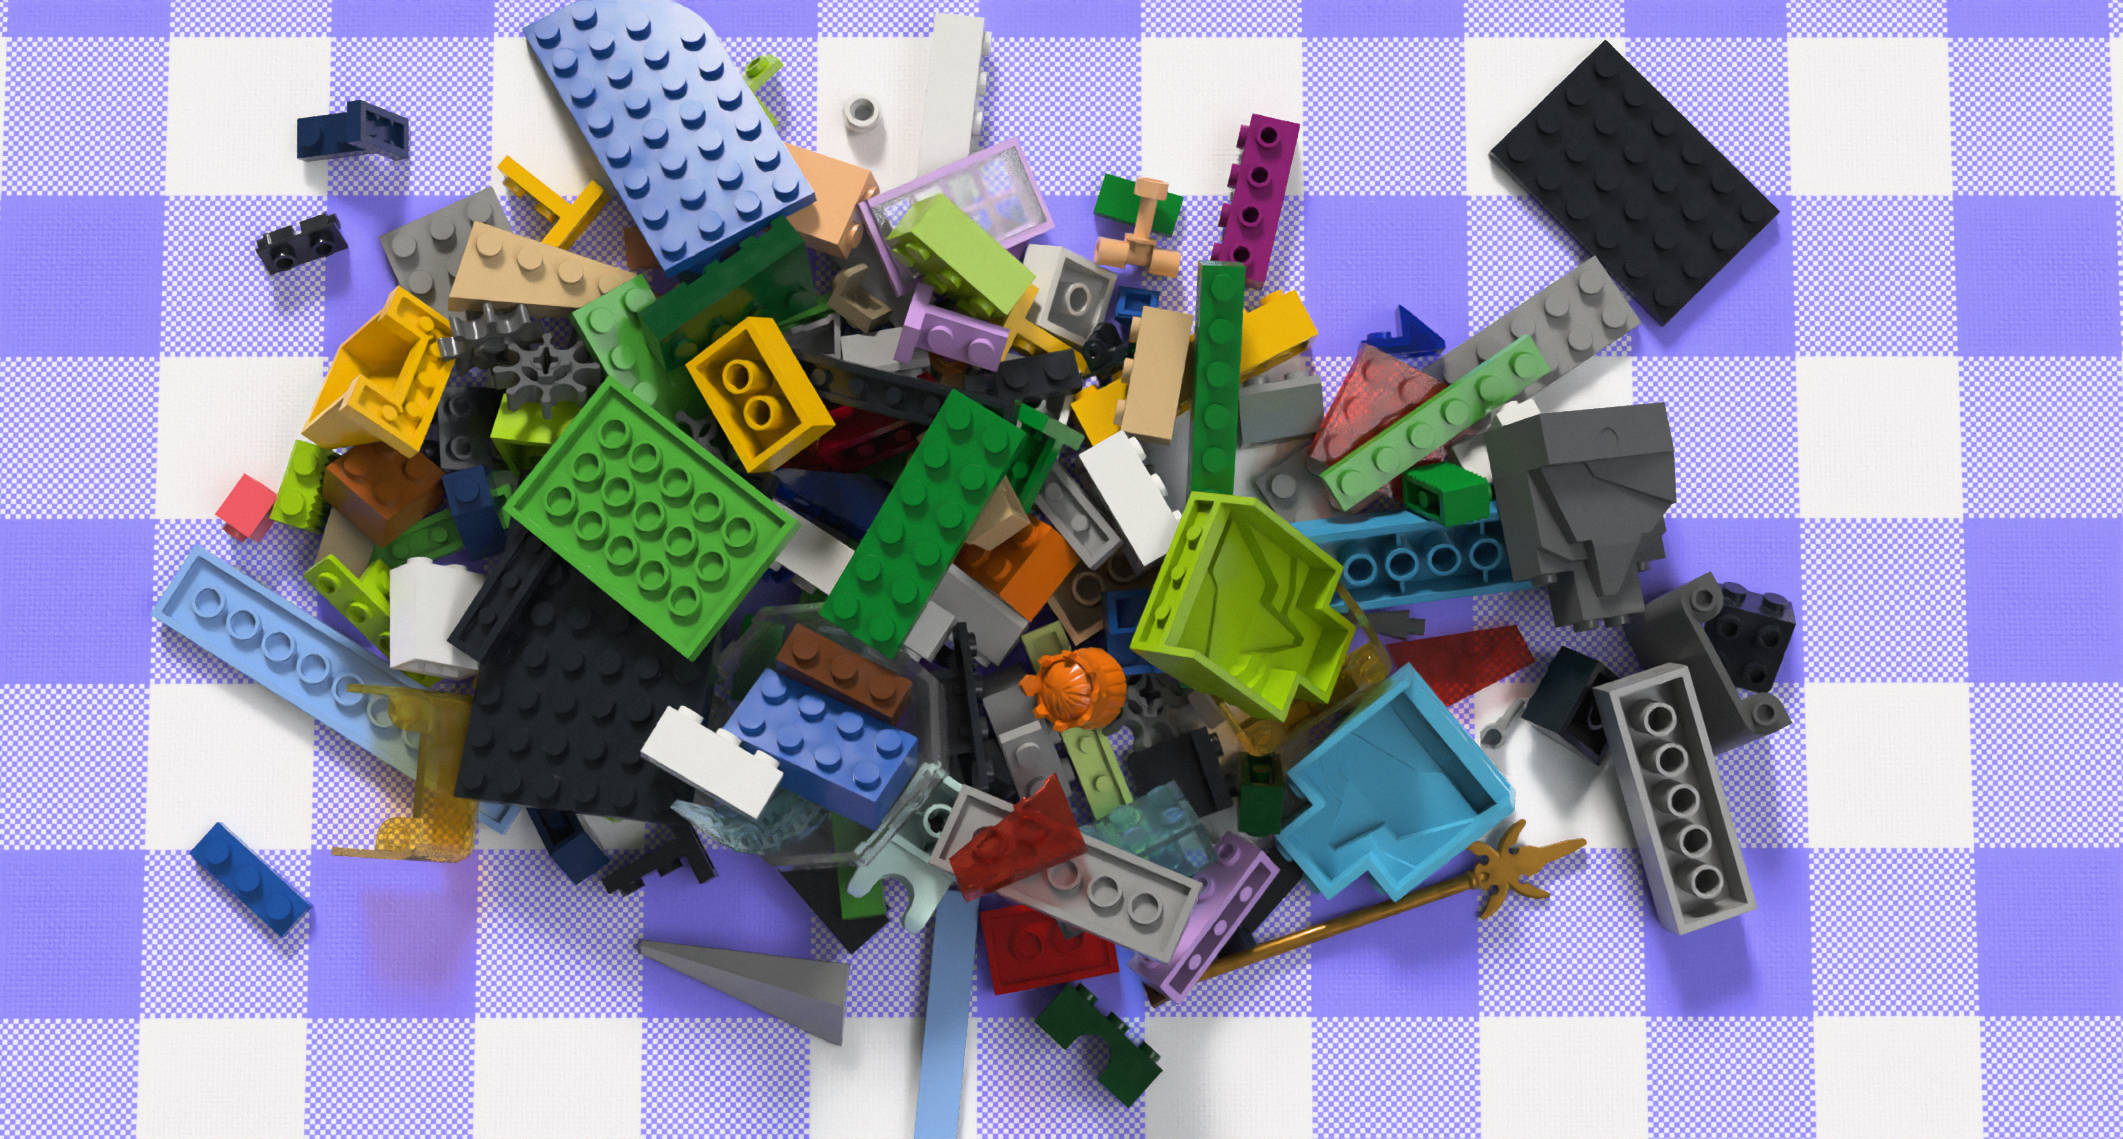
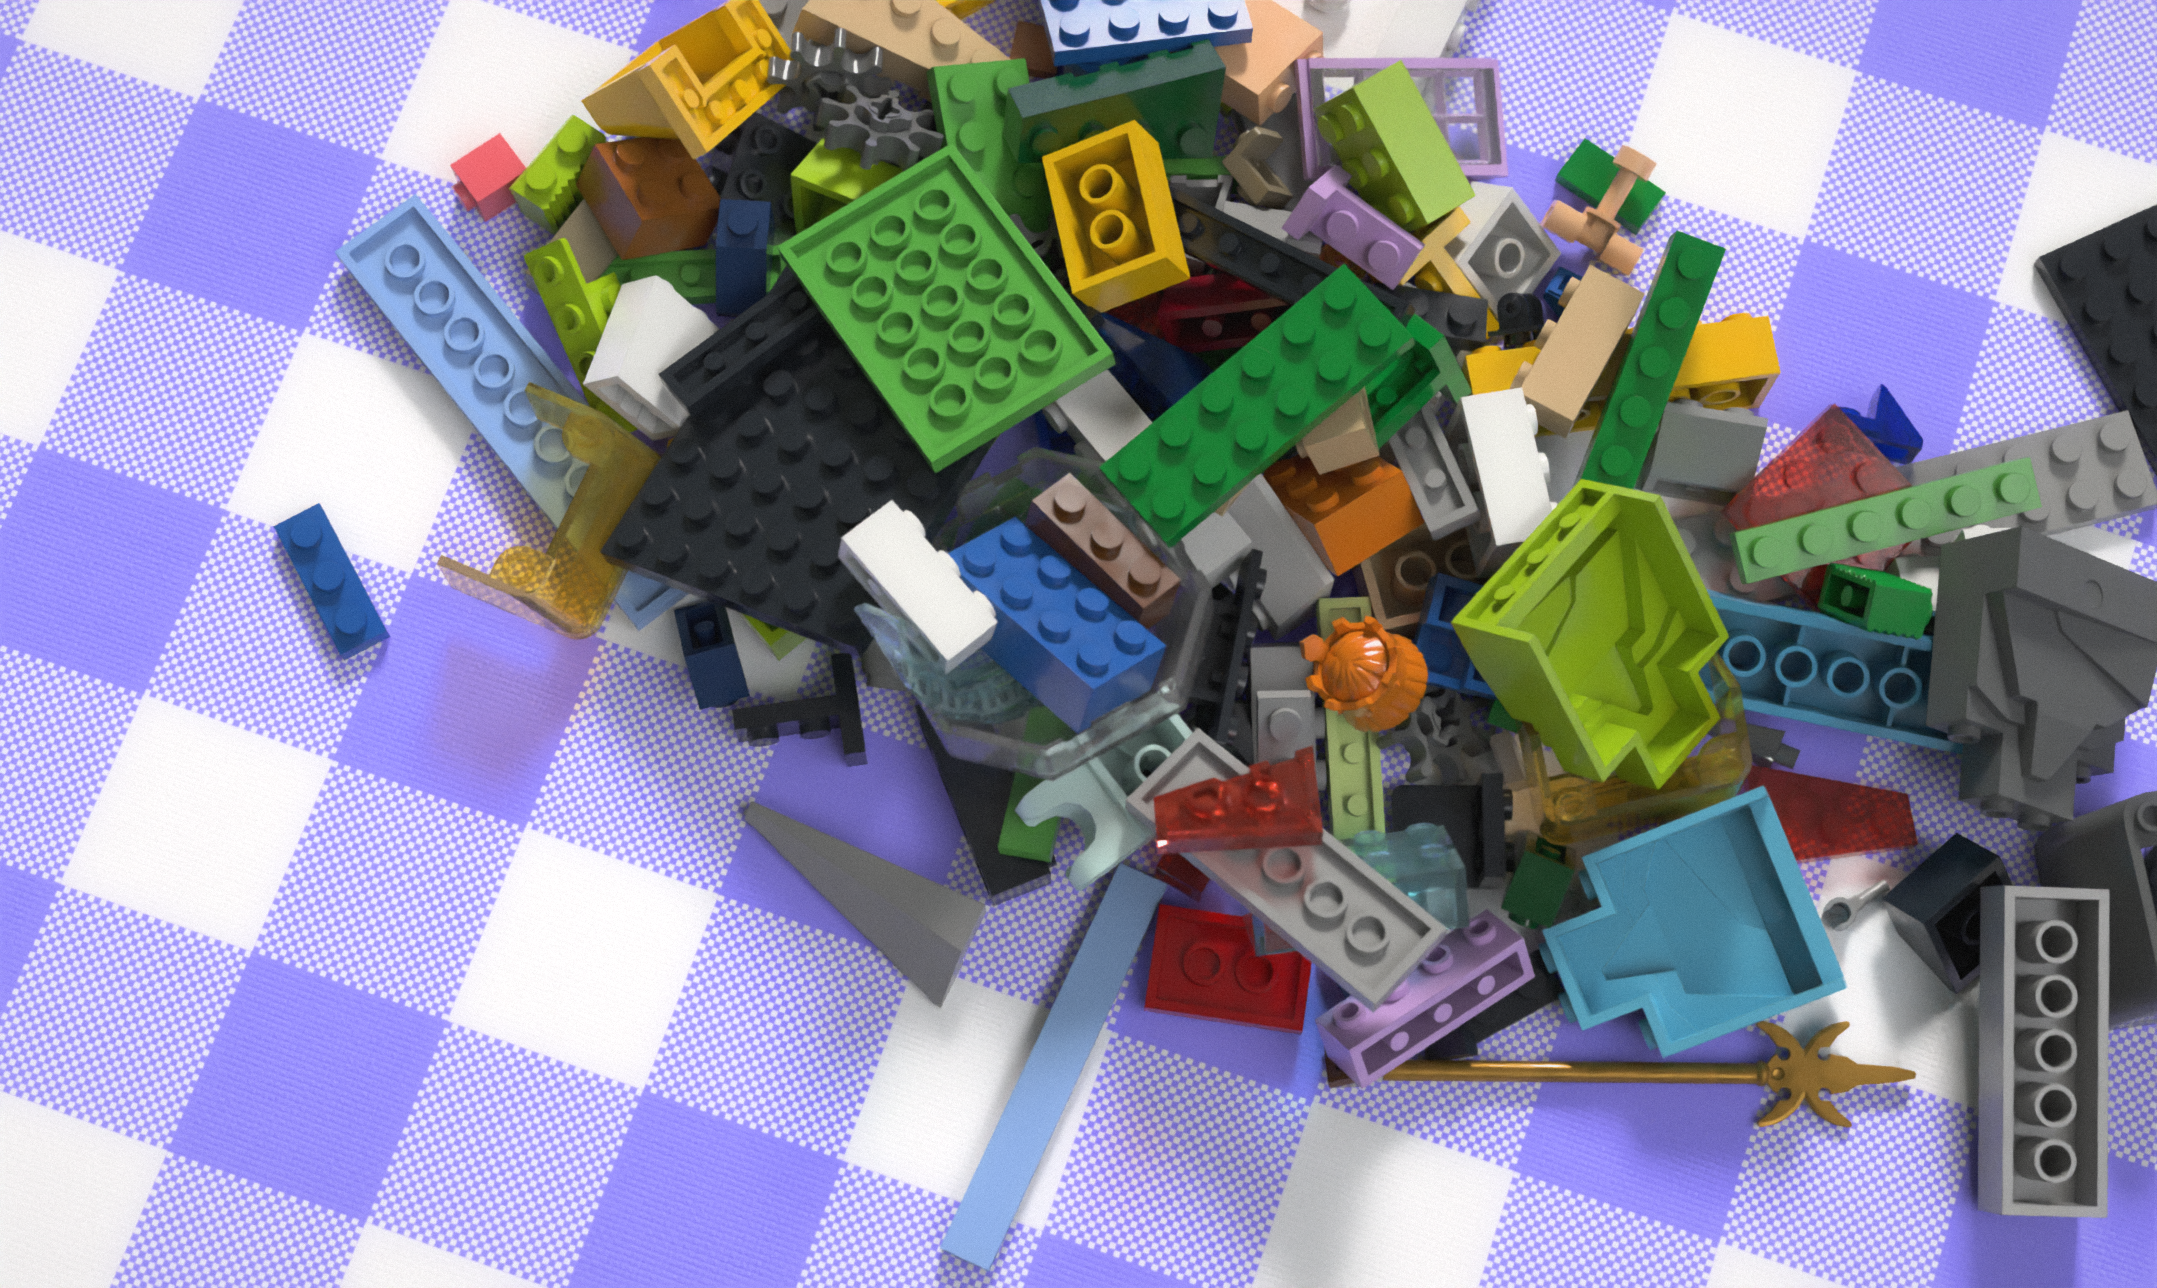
camera: 20 degrees right, 10 degrees down
(1129, 1067) = (1232, 1063): dark green arch -> none
(1258, 195) = (1757, 211): magenta brick -> none

